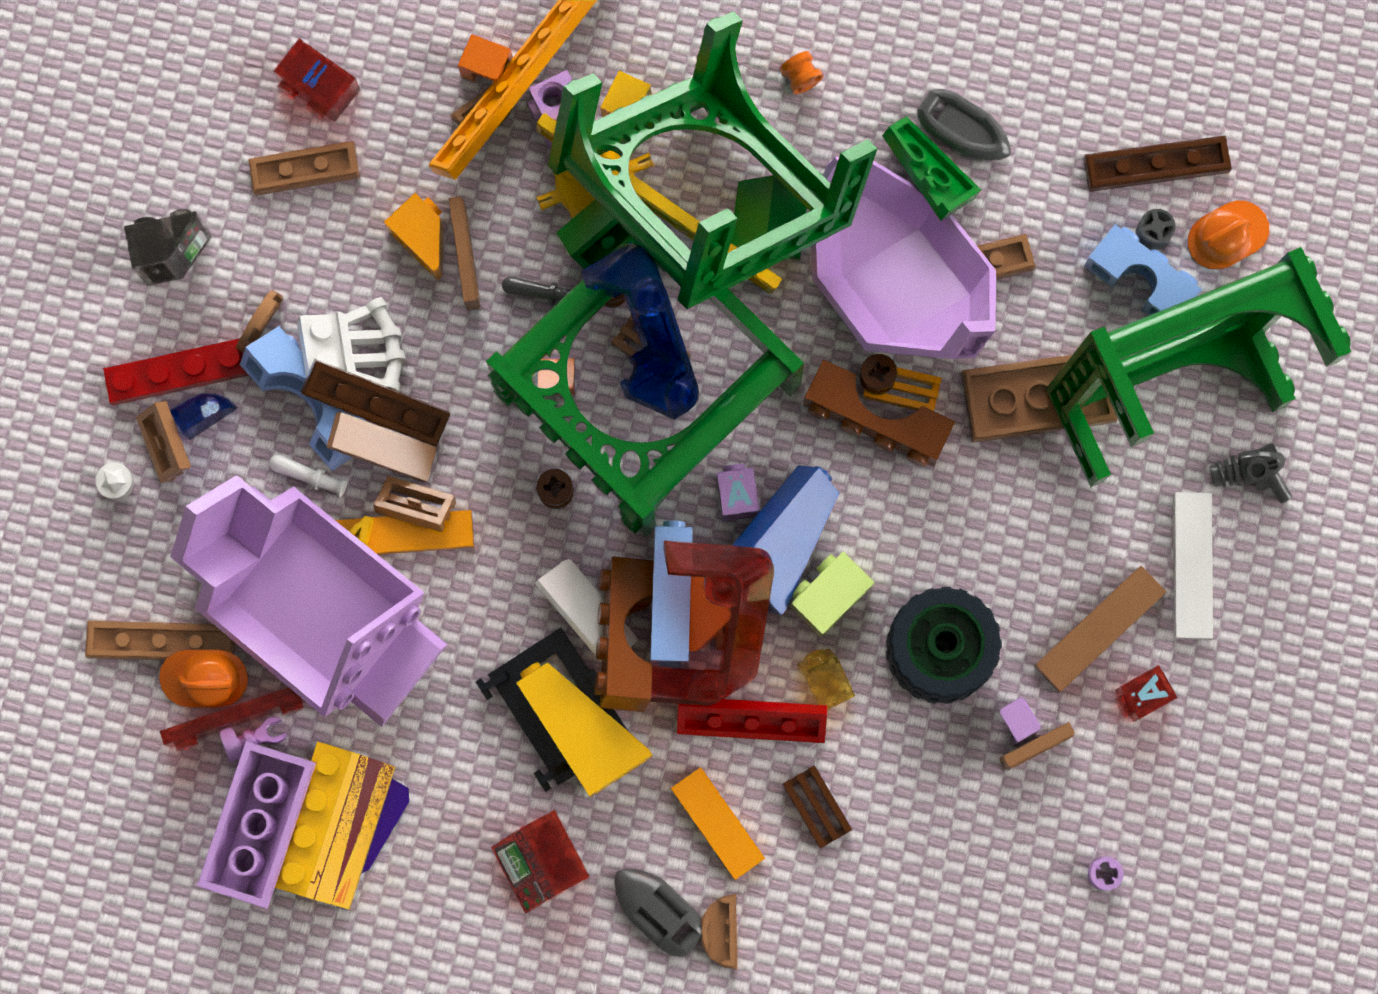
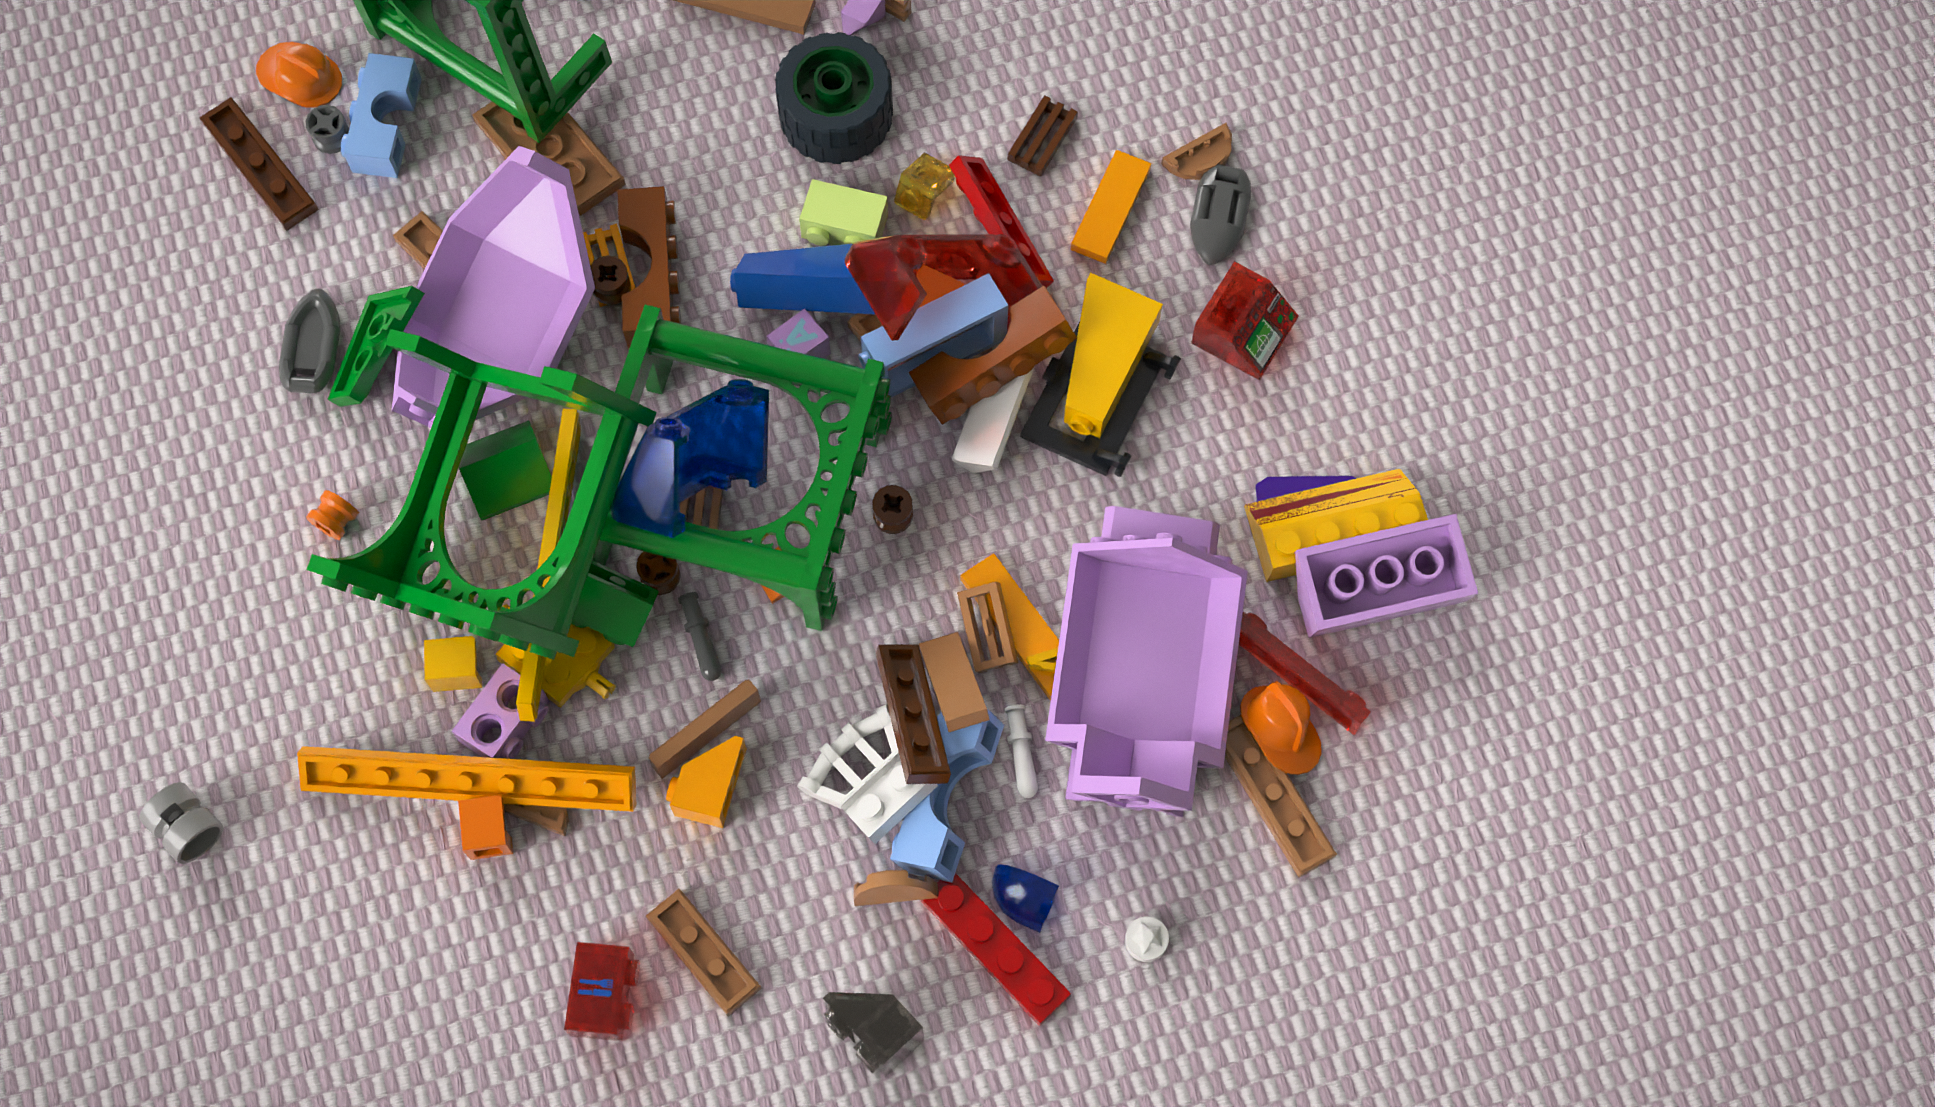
camera: 125 degrees left, 10 degrees down
(163, 441) = (1073, 906): medium nougat tile -> none
(234, 744) = (1322, 658): lavender piece -> none

